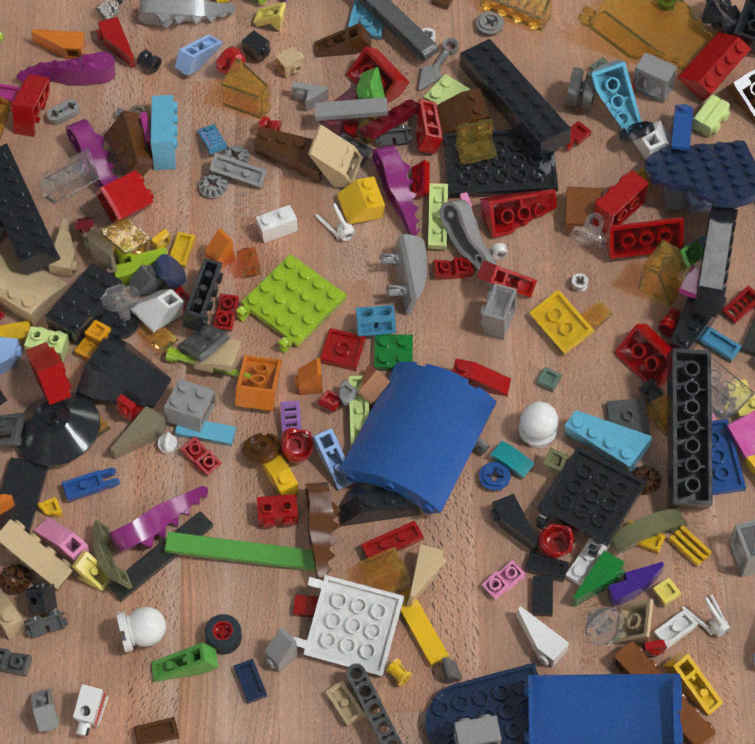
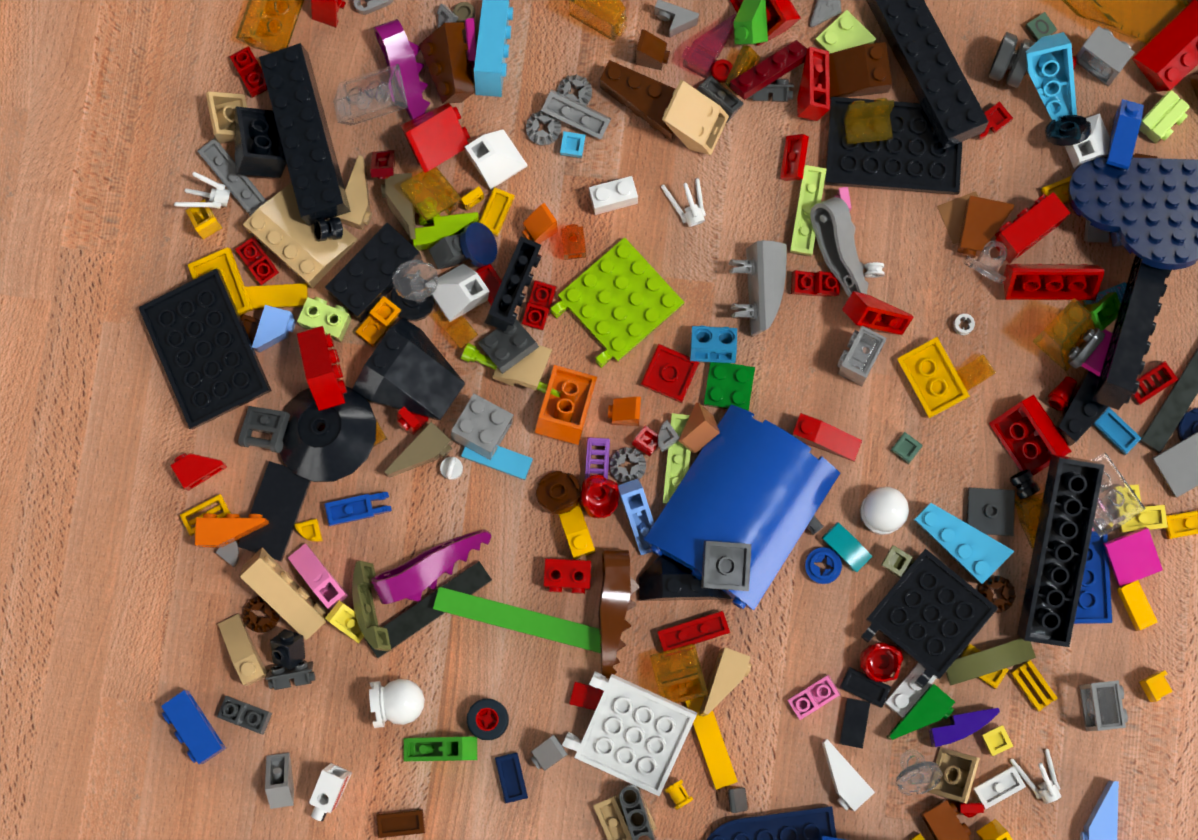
camera: 10 degrees right, 20 degrees up
(41, 274) = (328, 229): none -> black wheel
(175, 209) = (495, 157): none -> white slope
(200, 456) = (487, 490): red slope -> none
(212, 139) = (550, 64): dark azure tile -> none
(238, 193) = (572, 144): none -> medium azure plate
(268, 123) = (621, 56): red wheel -> none
(293, 118) = (651, 51): none -> reddish brown slope
(309, 418) = (619, 458): none -> light grey gear
(351, 109) = (723, 52): light grey tile -> none
(361, 201) = (719, 178): yellow slope -> none
(396, 185) = (764, 162): magenta animal -> none
(410, 471) = (726, 566): none -> dark grey plate
(510, 211) = (897, 215): red wedge -> none
(513, 521) = (835, 624): black slope -> none
(683, 270) = (1091, 340): none -> dark grey plate

